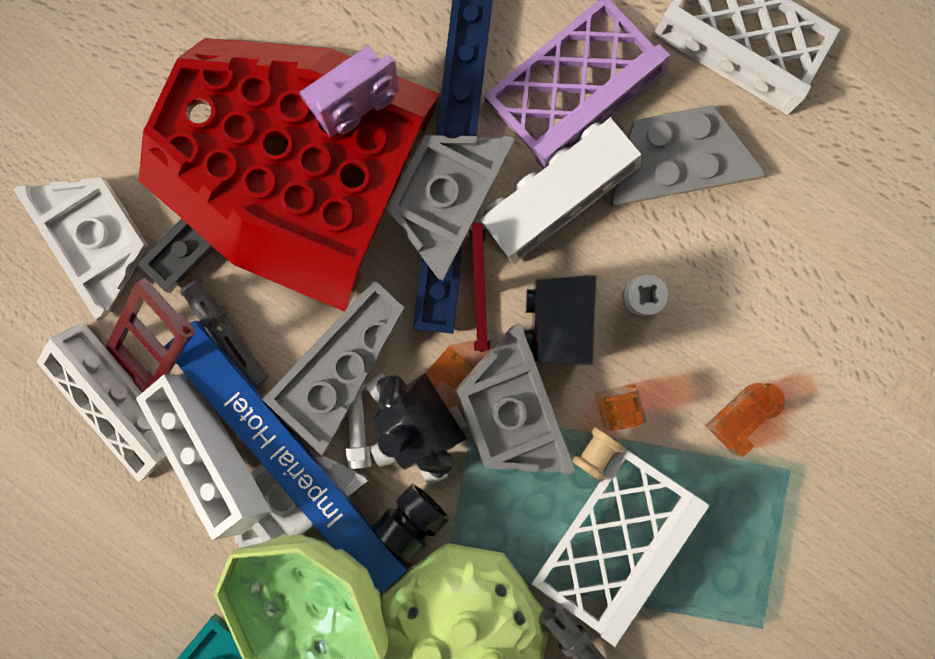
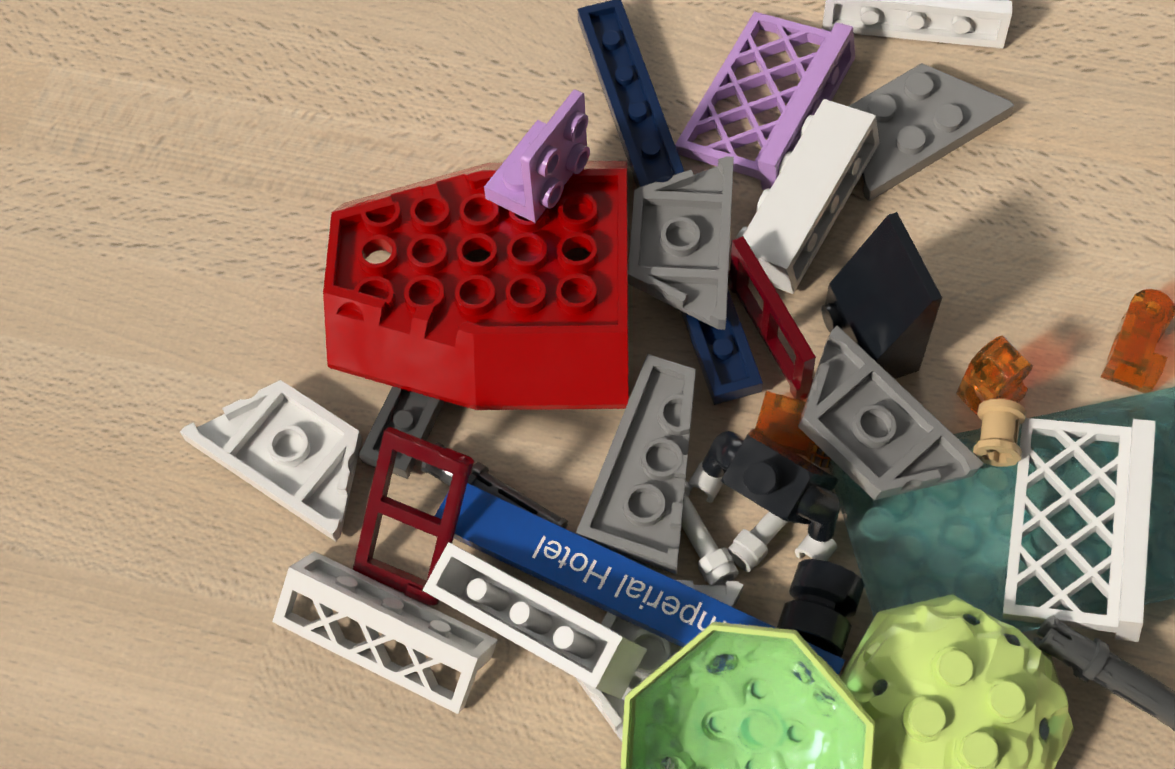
camera: 20 degrees left, 25 degrees down
(639, 300) = (945, 268): white wheel -> none

